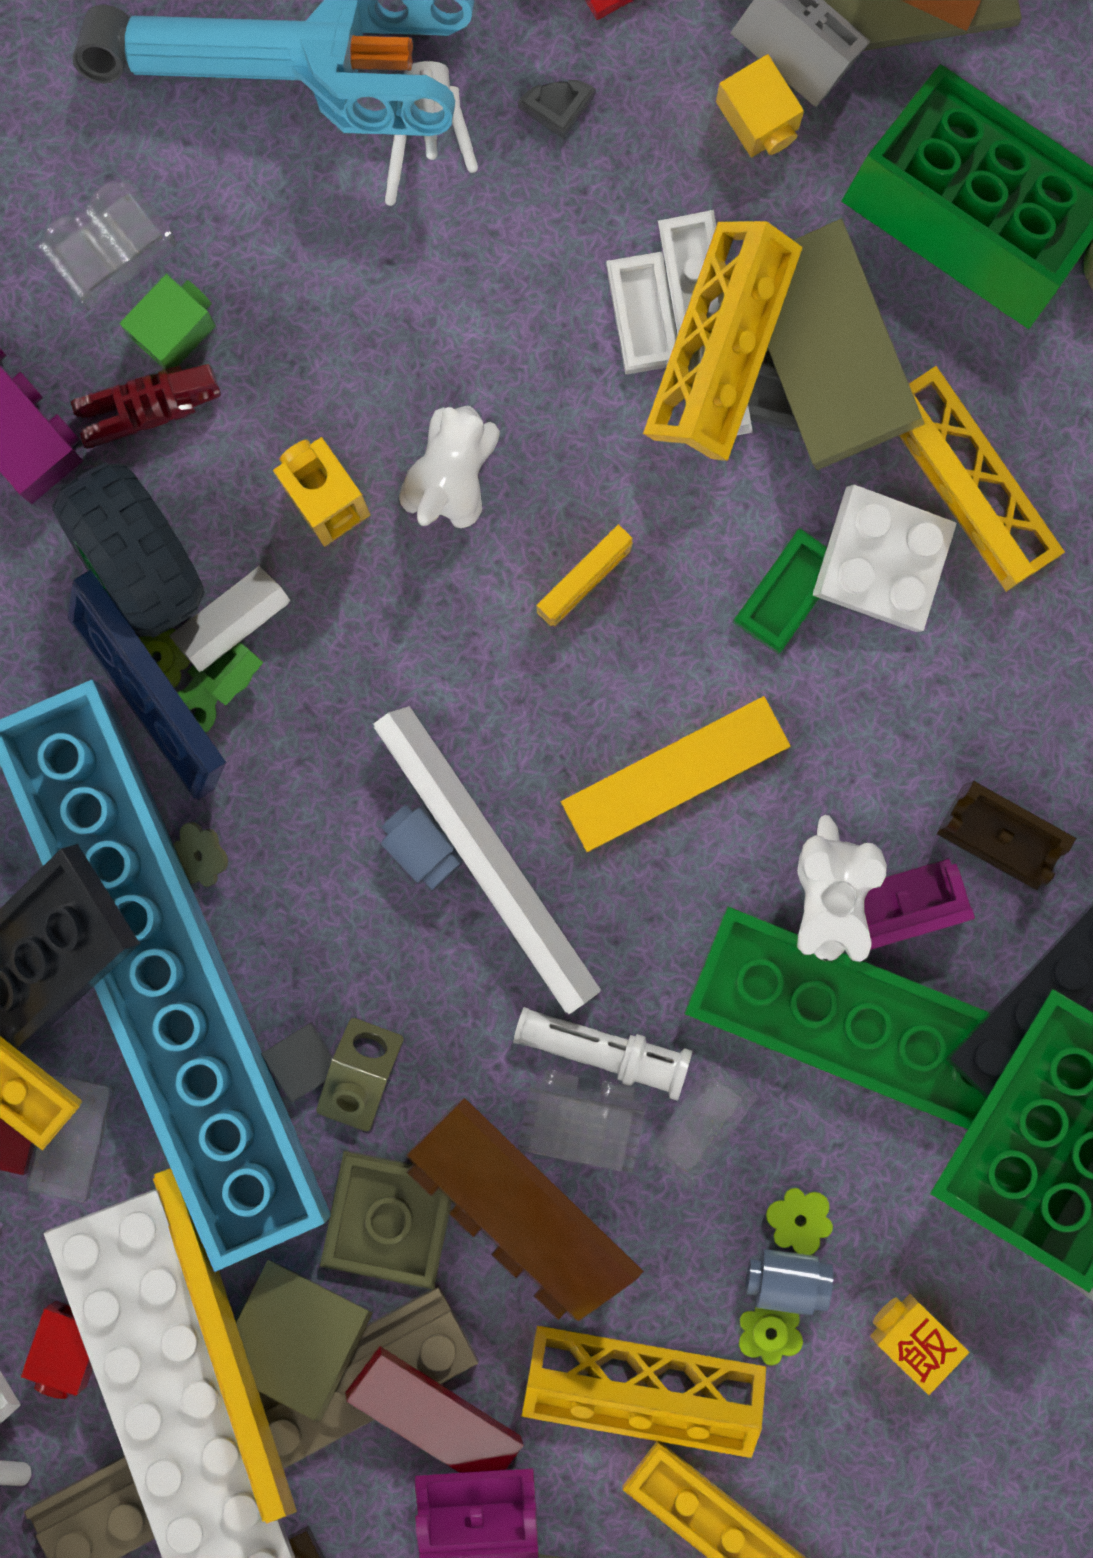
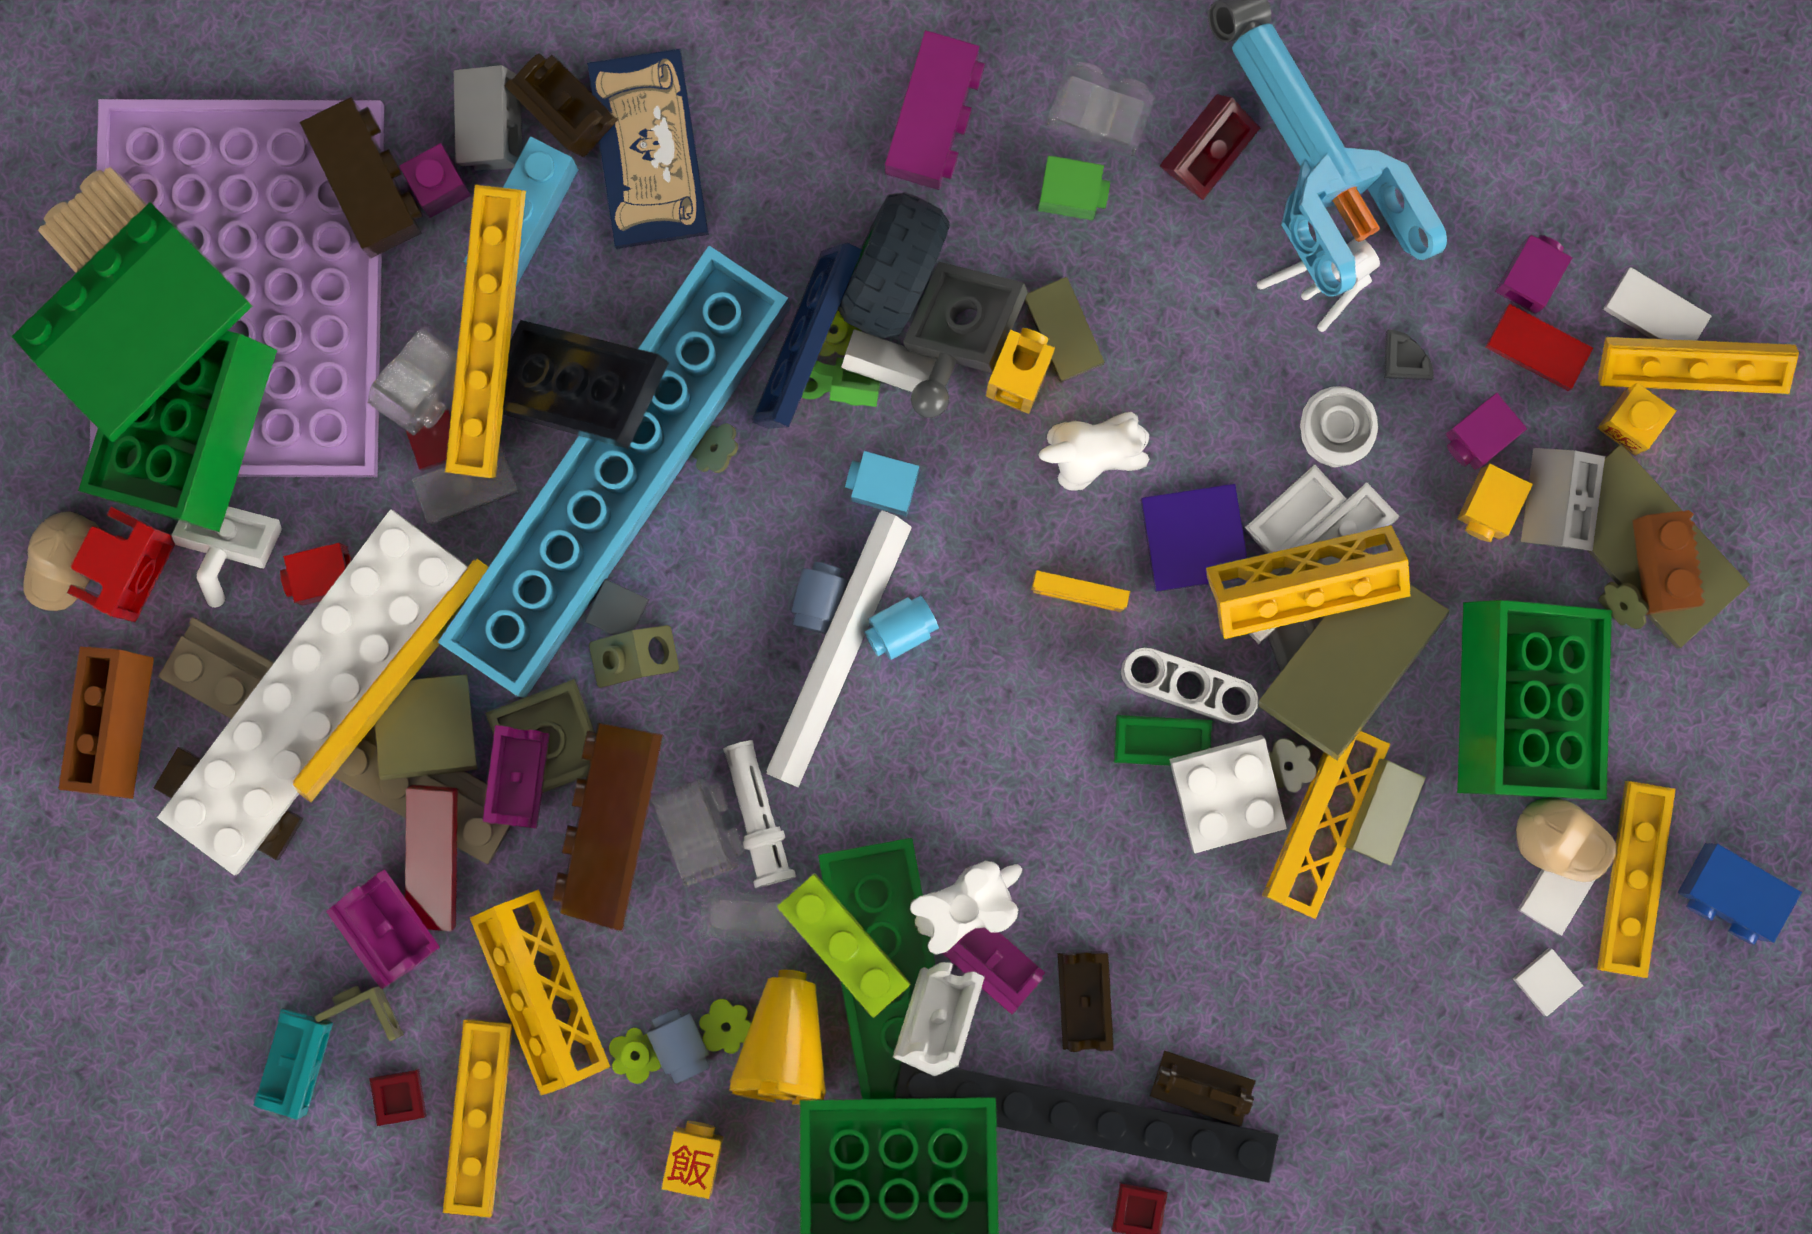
camera: 55 degrees right, 0 degrees up
(145, 402) = (1006, 208): dark red hinge -> none
(216, 159) = (1210, 145): none -> dark red slope
(263, 524) = (970, 345): none -> dark grey plate
(288, 417) = (1063, 322): none -> olive tile
(345, 705) = (882, 482): none -> medium azure brick
(407, 1277) = (516, 777): none -> magenta hinge
(505, 781) = (901, 627): none -> medium azure brick
(584, 212) = (1338, 426): none -> white piece
(599, 428) = (1192, 533): none -> dark purple tile
(675, 774) = (982, 743): yellow tile -> none
(683, 71) = (1484, 432): none -> magenta brick
(765, 504) = (1212, 685): none -> white beam
(797, 1046) = (844, 945): none -> lime brick
(857, 1173) = (783, 1044): none -> yellow cone
(907, 468) = (1303, 769): none -> olive plant
(935, 996) = (938, 1019): none -> white hinge
(944, 44) = (1625, 604): none -> olive plant
(1001, 413) = (1385, 811): none -> tile

